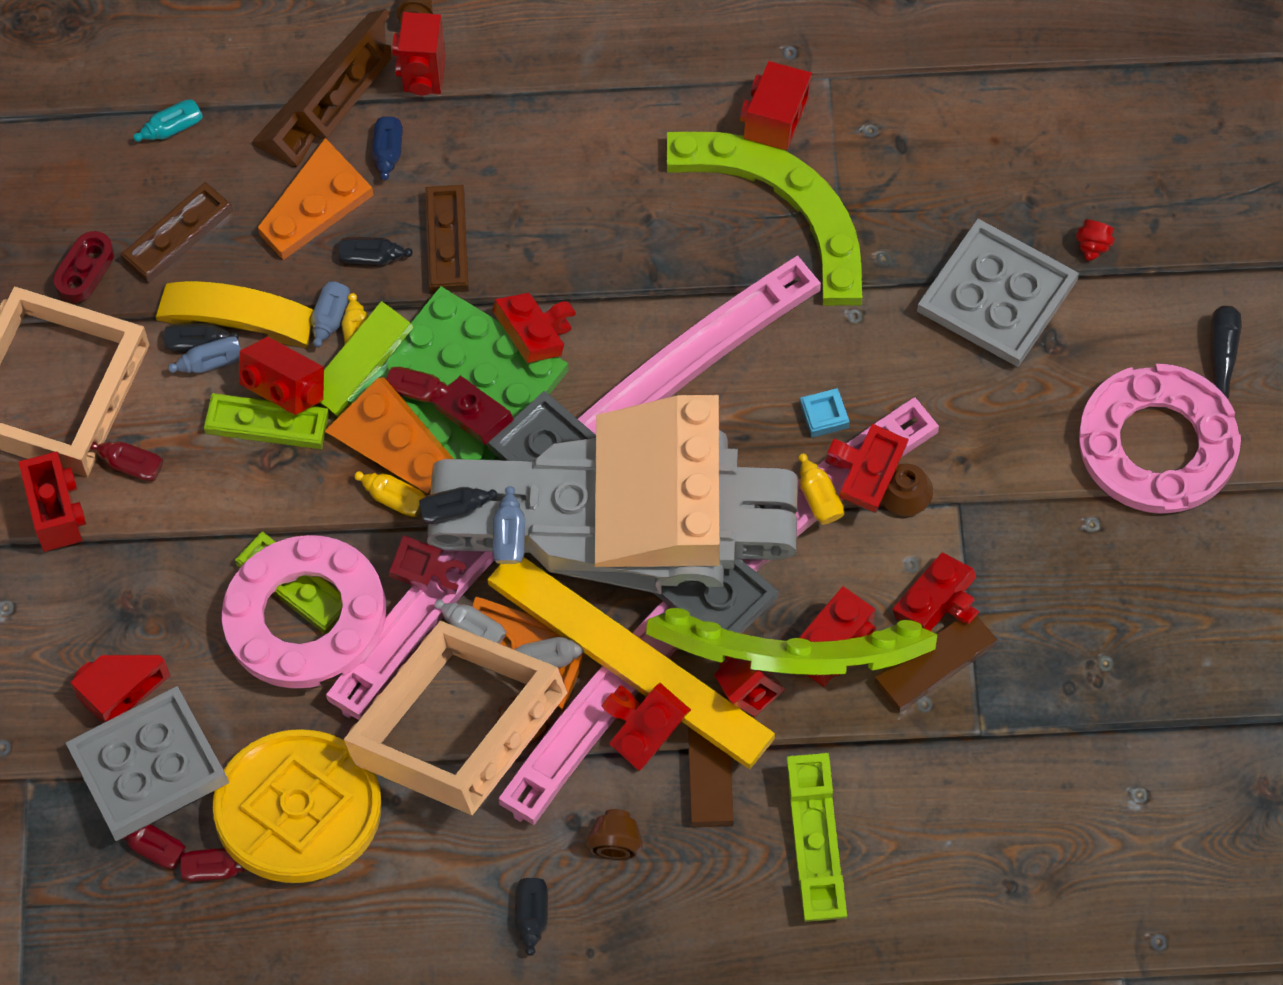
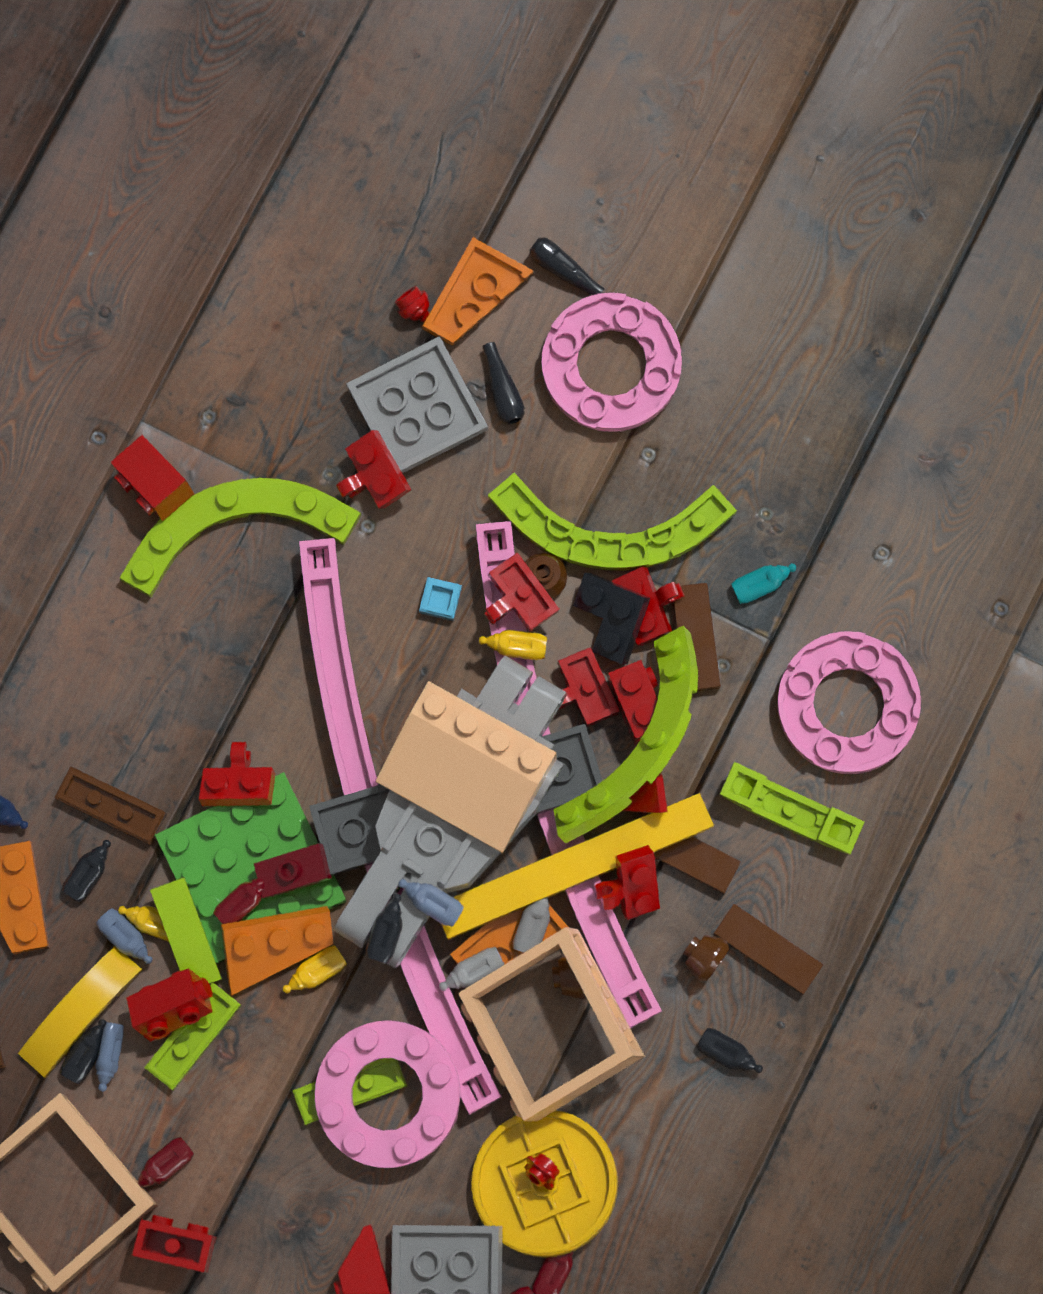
camera: 60 degrees left, 15 degrees up
(303, 786) = (541, 1171): none -> red plate
(419, 563) = (406, 983): dark red plate -> none
(659, 897) = (768, 949): none -> reddish brown tile
(816, 582) = (587, 687): none -> red plate
(910, 287) = (375, 470): none -> red plate
(912, 574) = (621, 614): none -> black plate
(962, 782) = (858, 653): none -> bright pink plate
(975, 540) = (606, 549): none -> lime plate
(1031, 691) = (760, 582): none -> teal piece
(1065, 360) = (504, 391): none -> black piece
(1144, 281) = (474, 290): none -> orange wing

